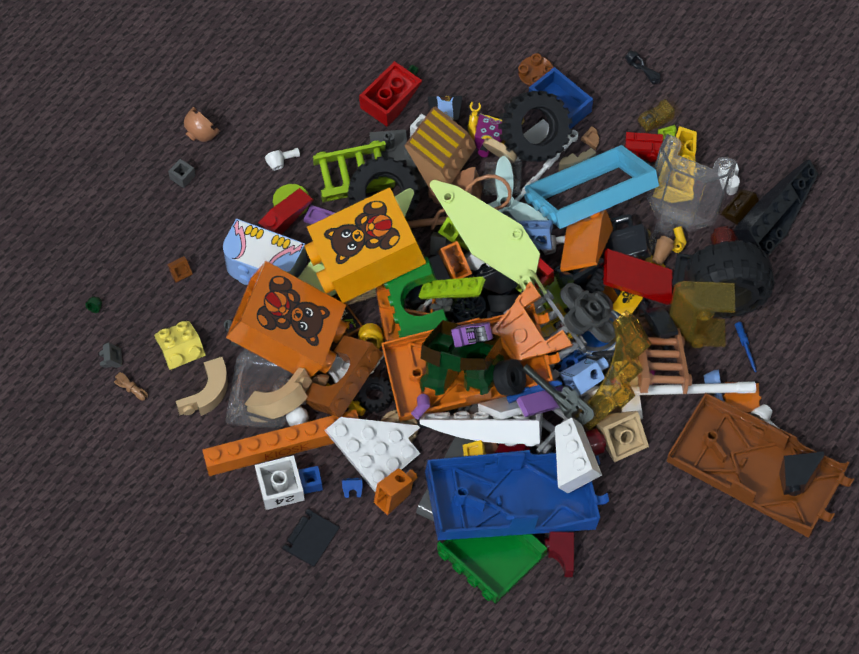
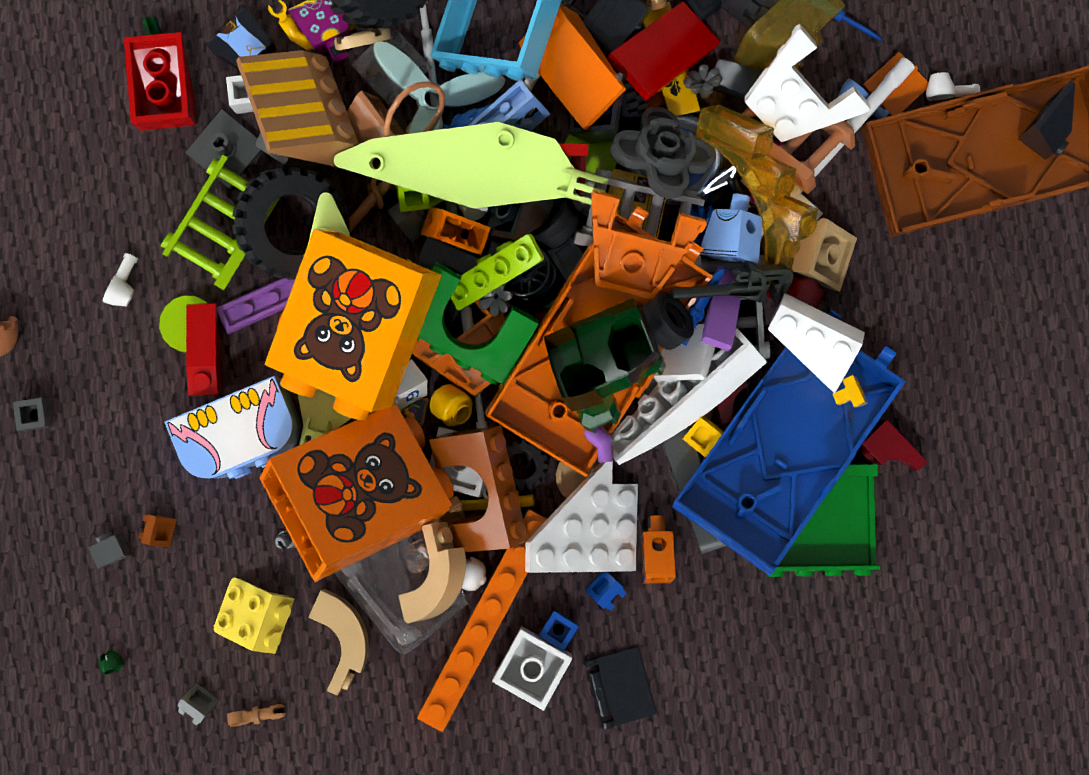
camera: 45 degrees left, 25 degrees up
(149, 257) = (109, 549): none -> dark grey plate
(359, 309) = (412, 386): none -> white brick
(471, 333) = (598, 326): medium lavender leg -> none
(567, 497) = (851, 392): none -> yellow tile
(642, 306) = (703, 81): none -> dark grey plant
(670, 338) = (789, 101): none -> white wing

